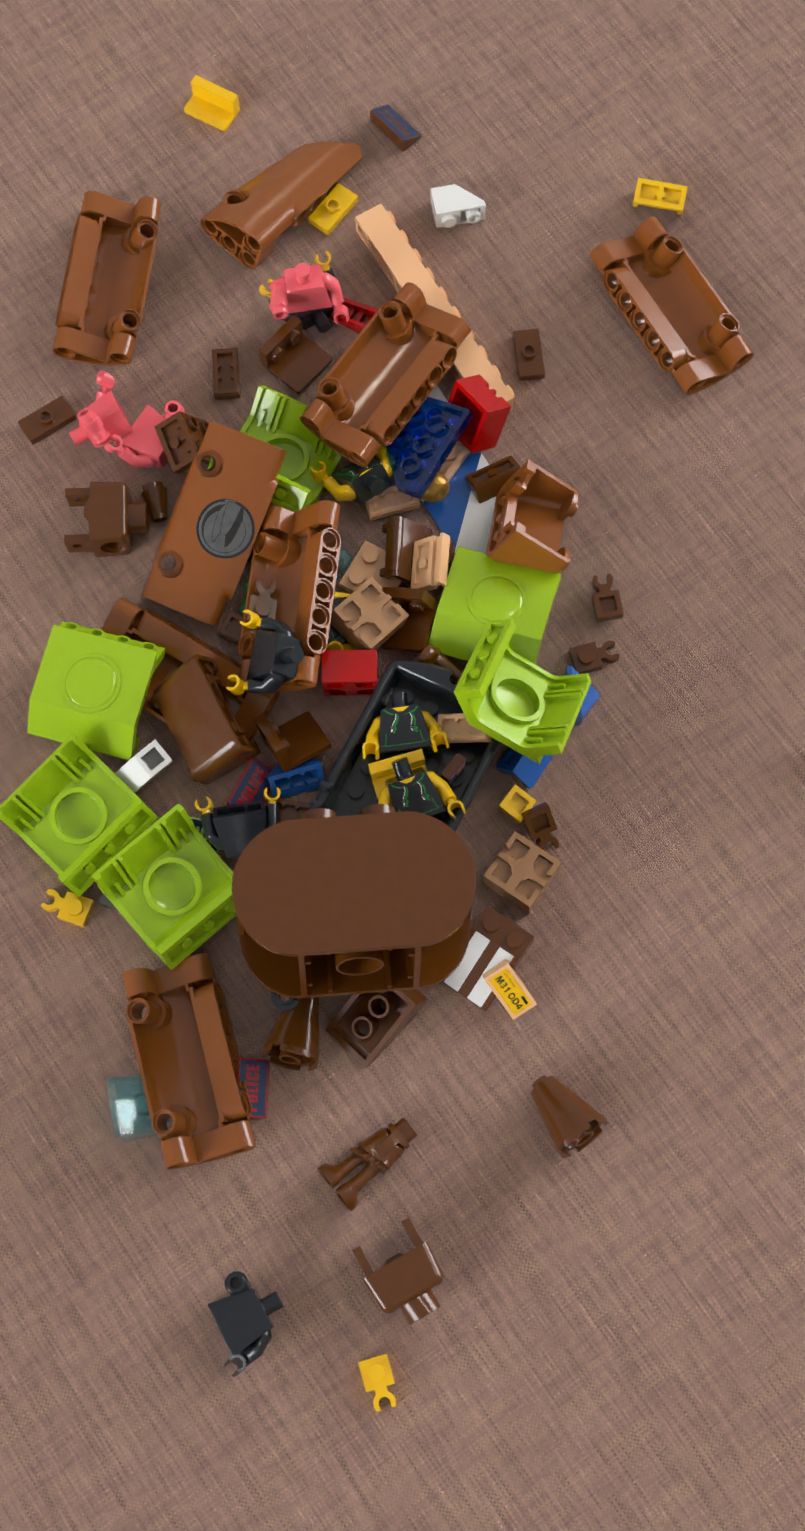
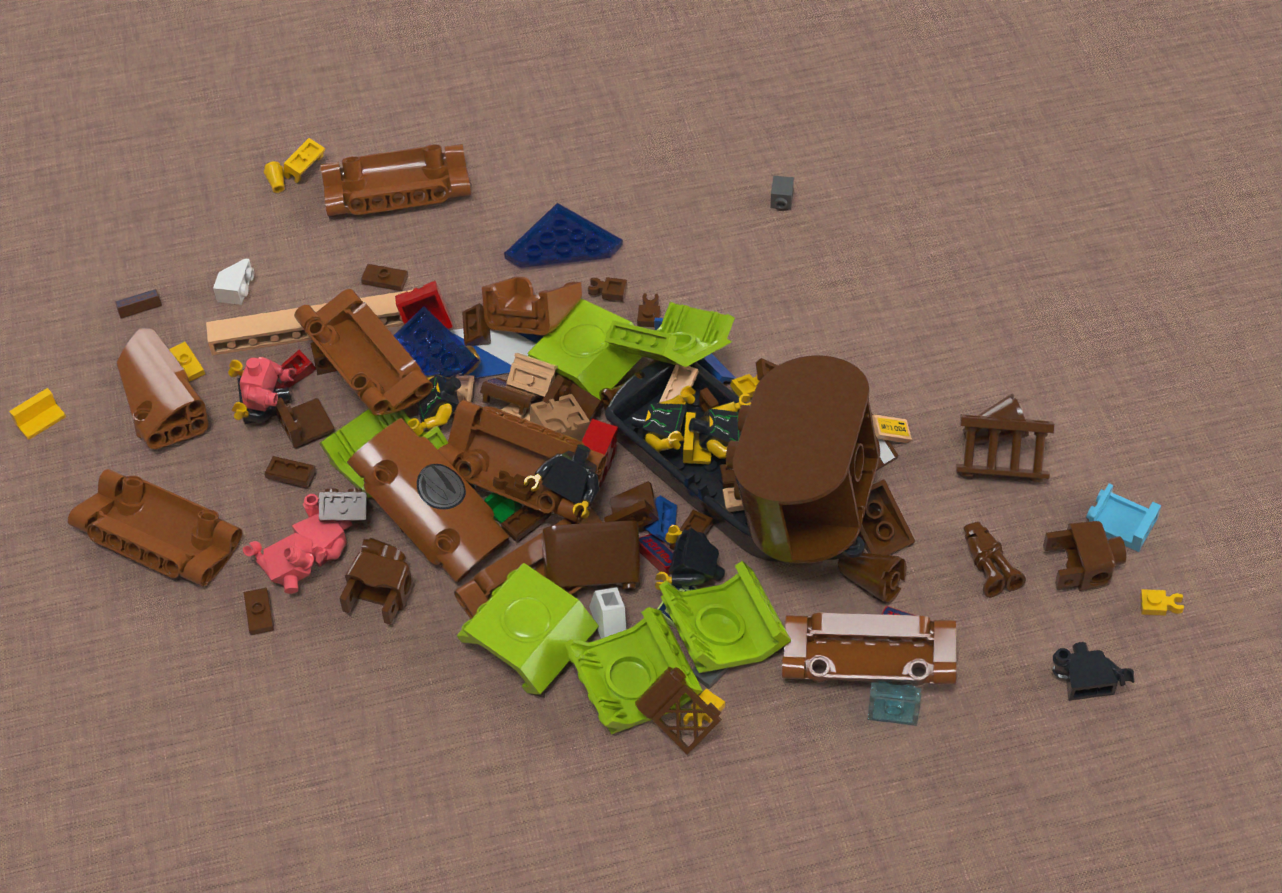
camera: 70 degrees left, 20 degrees down
(49, 861) = (663, 695): none -> reddish brown piece
(484, 1304) = (1124, 517): none -> medium azure panel
(545, 1125) = (1018, 428): none -> reddish brown fence
(626, 178) = (275, 175): none -> yellow cone
(659, 520) = (562, 238): none -> clear blue plate

